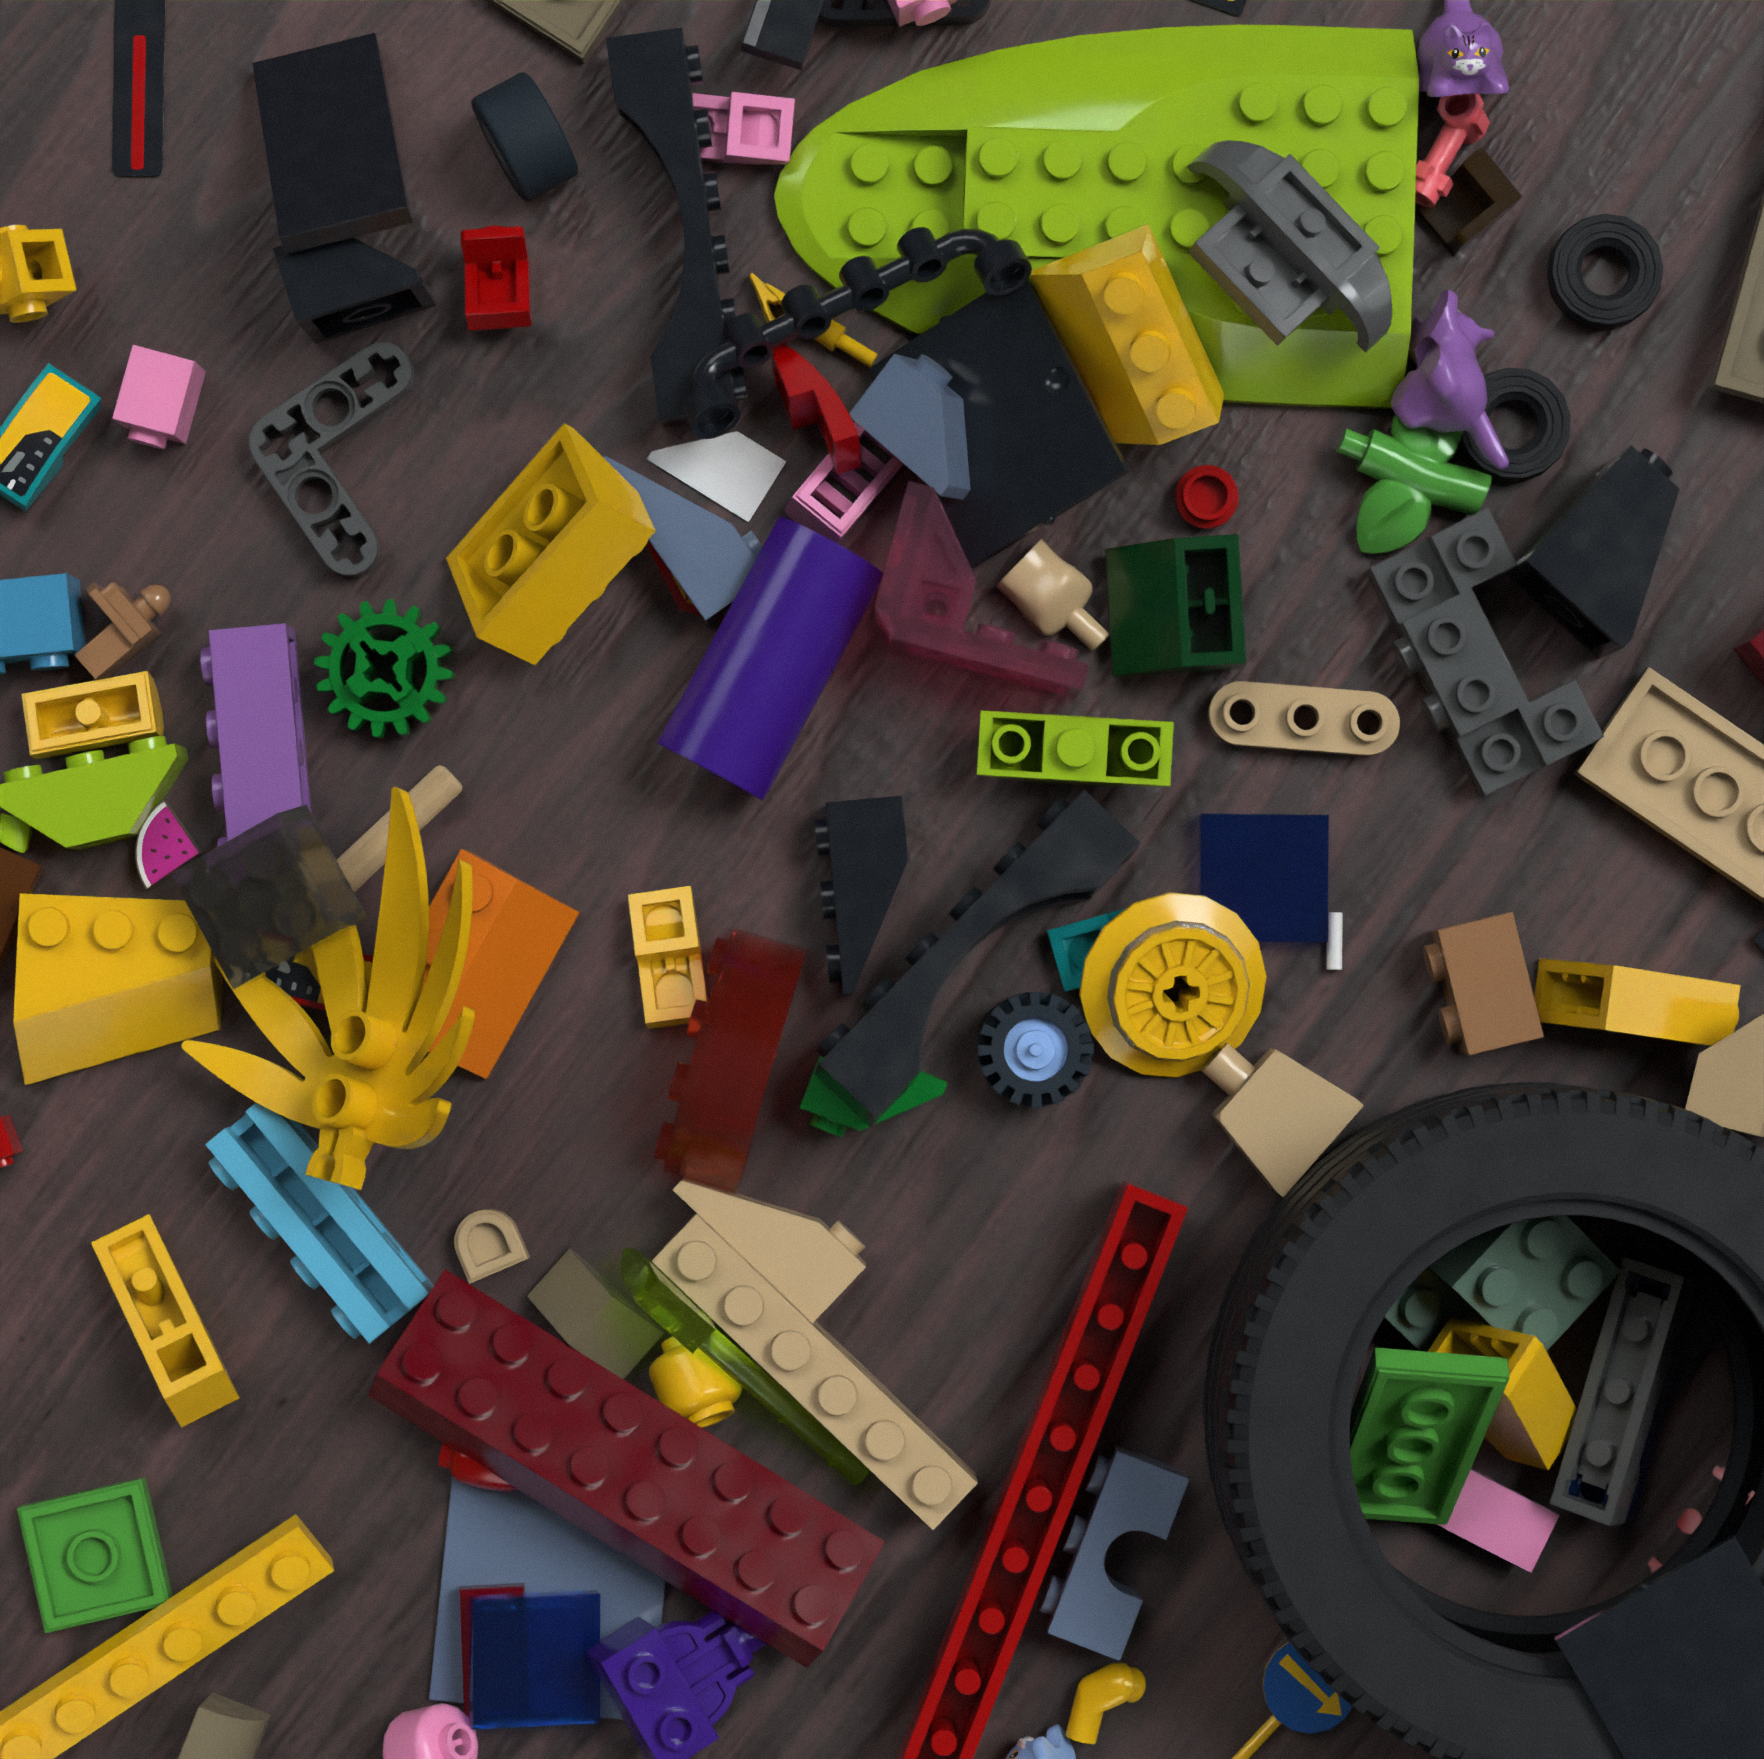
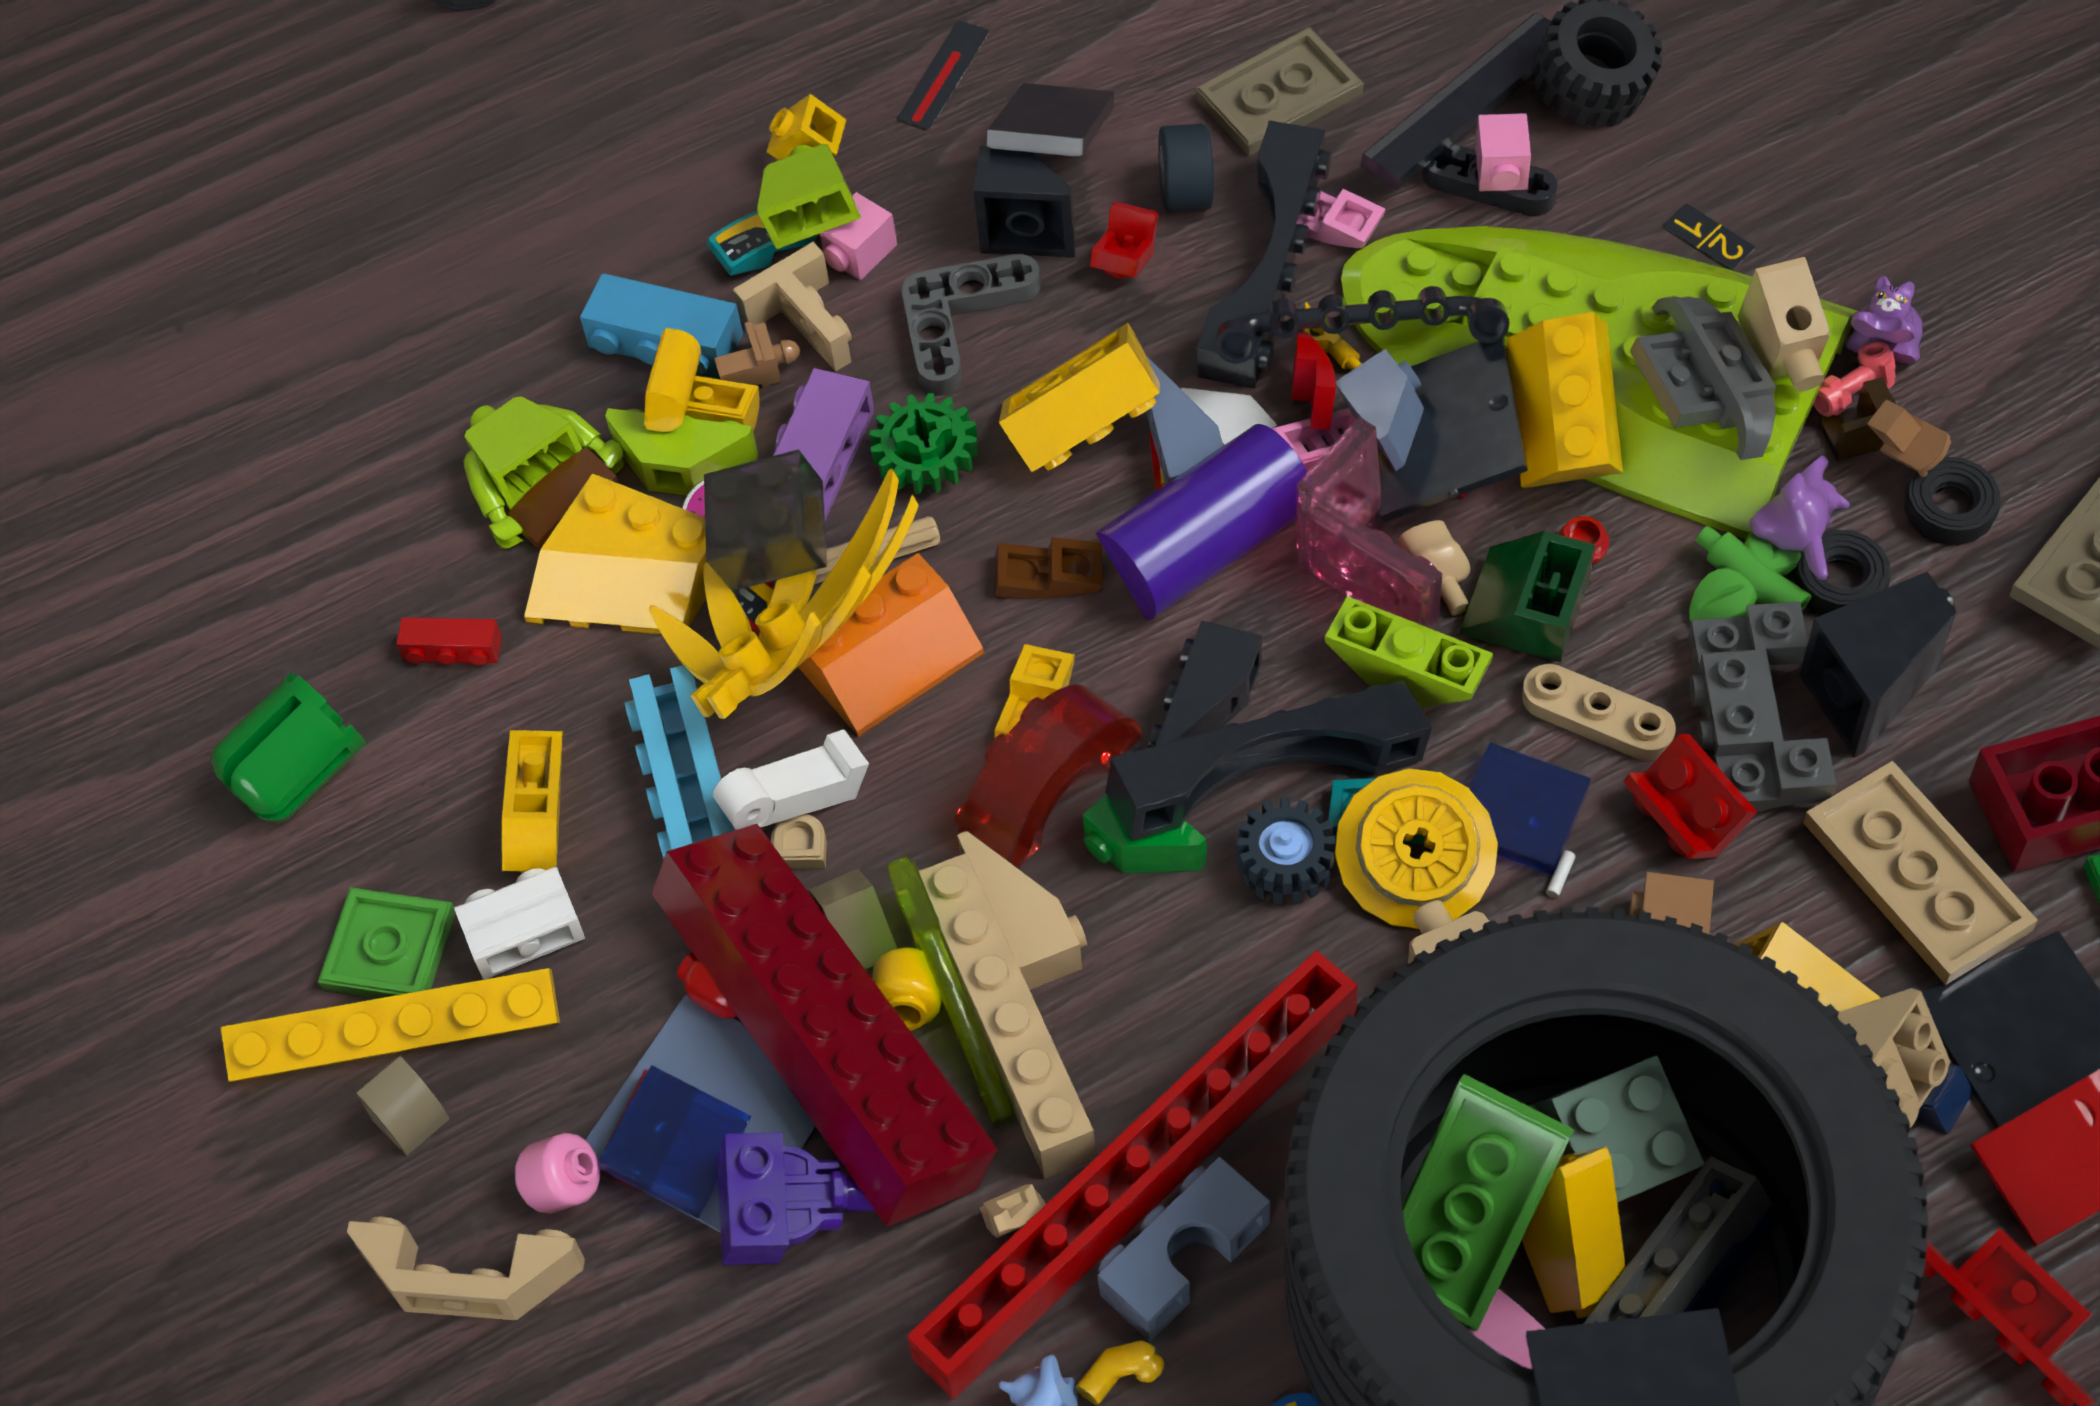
camera: 30 degrees right, 30 degrees down
(50, 728) = (671, 380): none -> yellow brick
(74, 381) = (804, 196): none -> lime torso
(104, 509) = (792, 289): none -> tan bracket
(231, 1476) = (519, 921): none -> white brick
(457, 1199) = (793, 784): none -> white leg
(607, 778) = (1053, 572): none -> reddish brown slope
(928, 1594) = (1011, 1210): none -> tan slope
(1345, 143) = (1786, 322): none -> tan torso
(1447, 807) = (1691, 800): none -> red bracket
(1544, 227) = (1909, 438): none -> medium nougat piece

